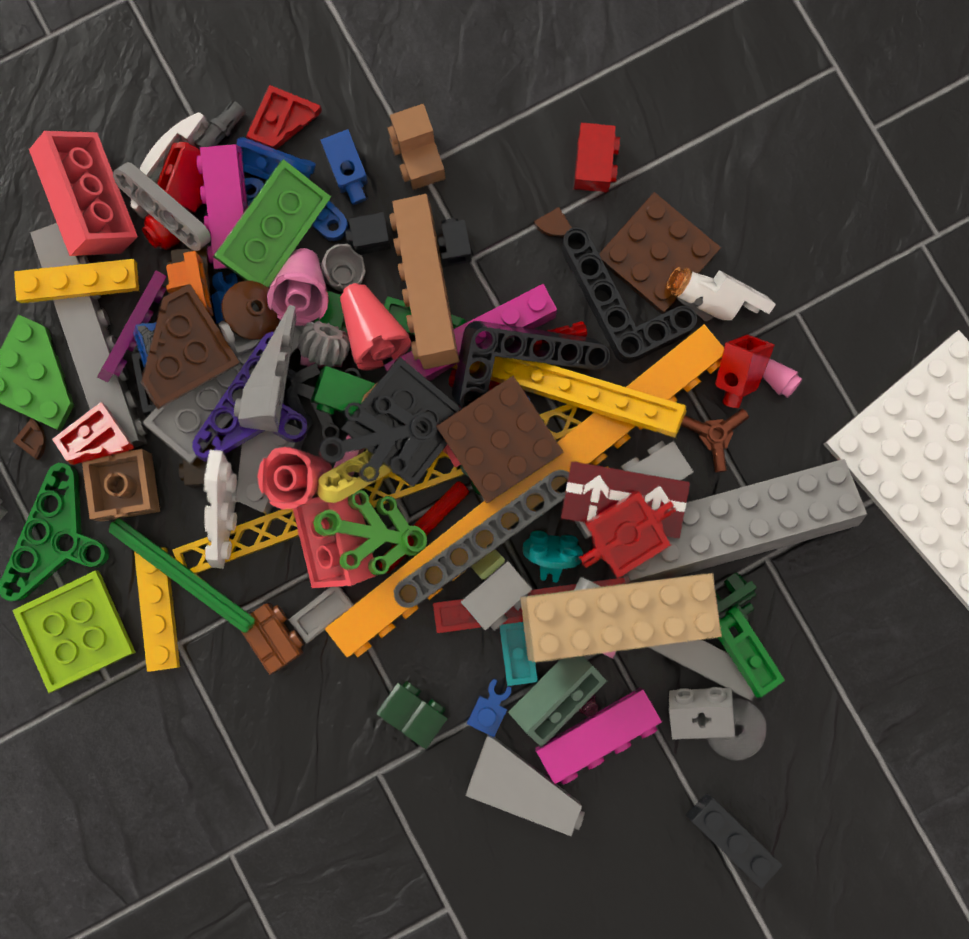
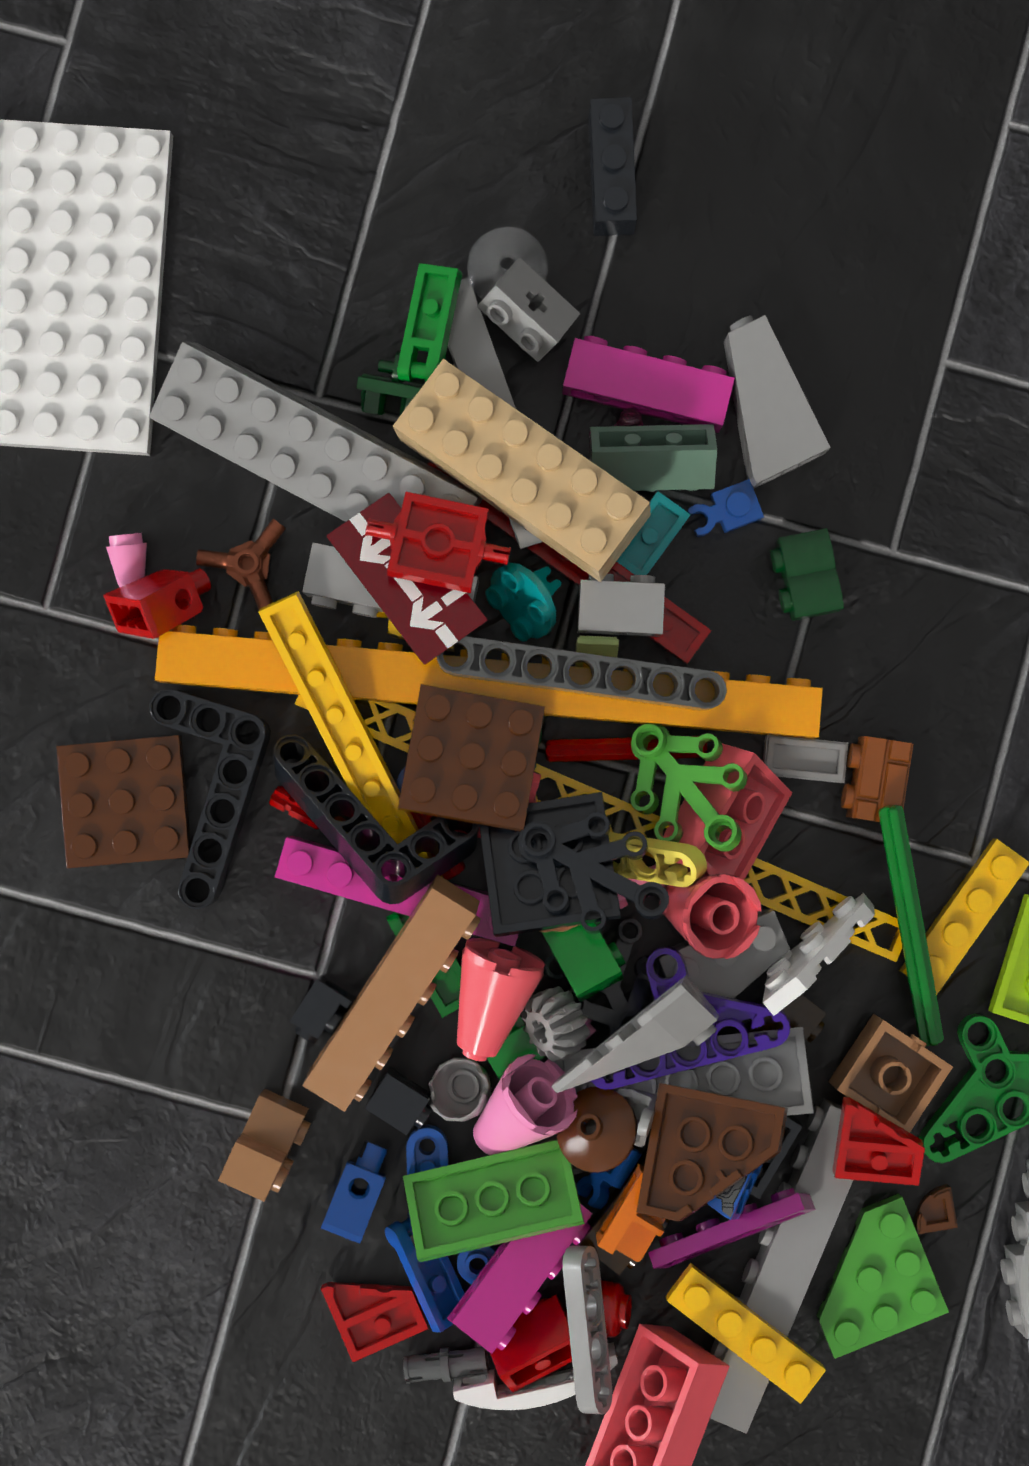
camera: 145 degrees left, 5 degrees up
(553, 224) = (200, 932): reddish brown tile -> none
(595, 157) = (91, 961): red brick -> none
(717, 296) = (111, 697): white plate -> none

